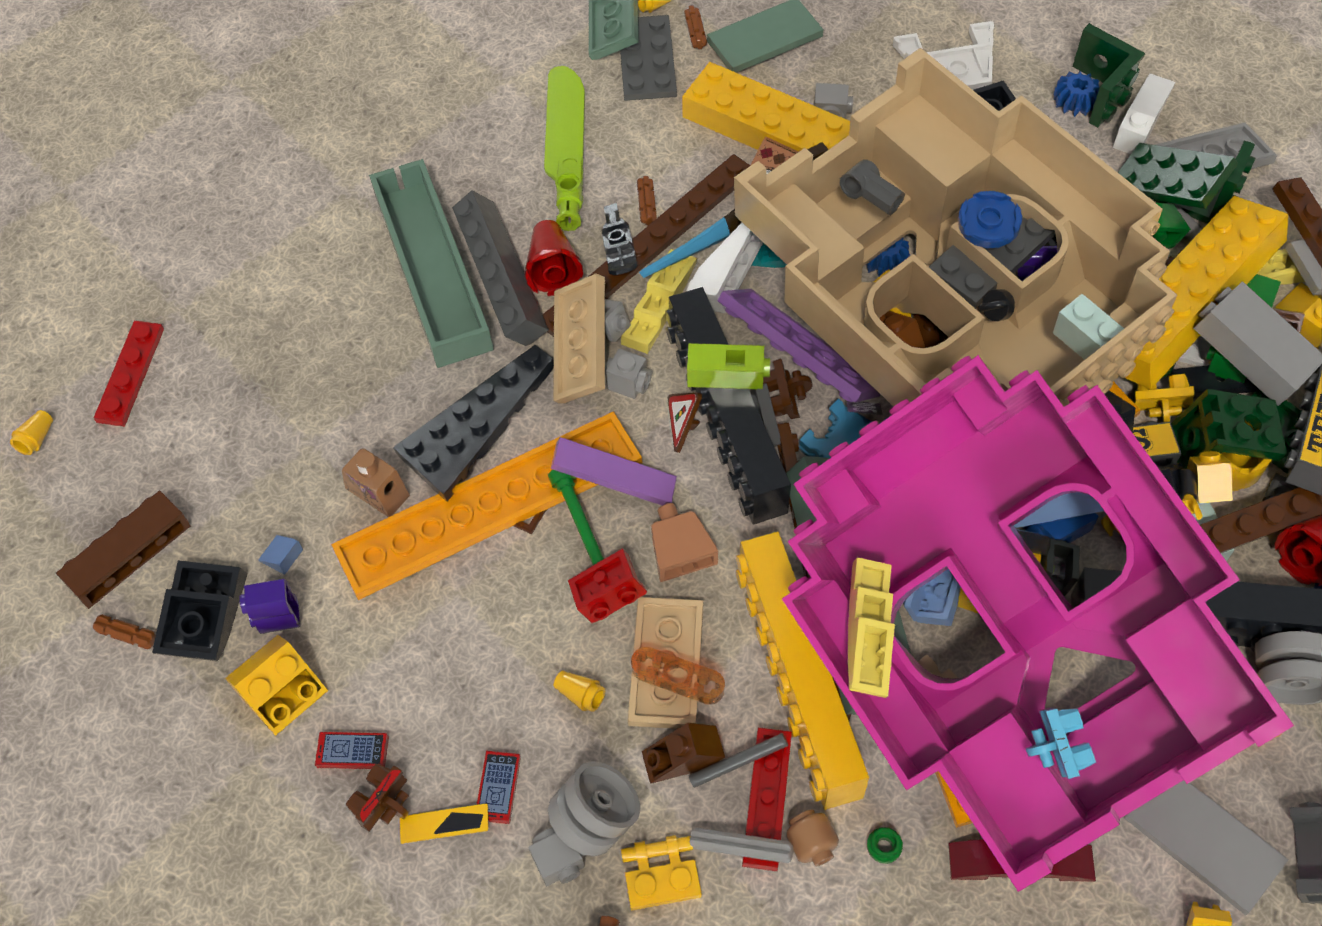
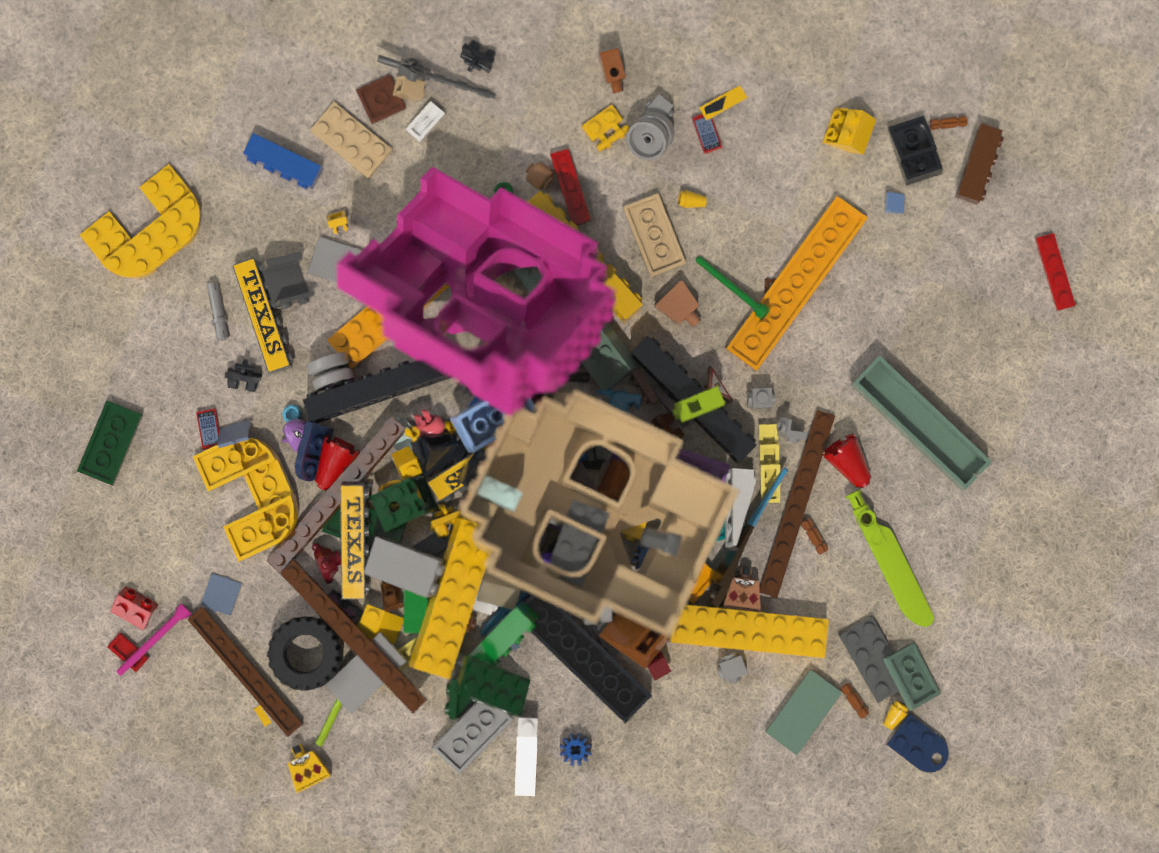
camera: 150 degrees right, 25 degrees up
(31, 433) = (1082, 208): yellow cone -> none
(270, 606) = (875, 164): dark purple brick -> none
(351, 750) = (790, 117): tile -> none
(369, 476) = (865, 262): medium nougat torso -> none
(385, 797) = (762, 108): reddish brown hips -> none
(469, 427) = (835, 322): black wing -> none
(499, 269) = (876, 437): dark grey brick -> none
(579, 339) = (798, 403): tan plate -> none
(606, 587) = (706, 258): red bracket -> none
(613, 472) = (735, 327): medium lavender tile -> none
(618, 242) = (809, 483): black piece -> none
(651, 675) = (630, 233): clear orange beam -> none
(683, 752) = (622, 190): reddish brown slope -> none
(738, 760) = (592, 198): dark grey bar -> none
(741, 845) = (572, 154): light grey axle -> none
(870, 628) = (549, 249): light yellow slope -> none
(968, 63) = (663, 738): white wing -> none
(989, 219) = (585, 548): blue tile -> none
(997, 305) = (560, 501): black tile -> none
(1068, 758) = (439, 237): medium azure hips -> none
(1116, 74) = (547, 761): dark green bracket -> none

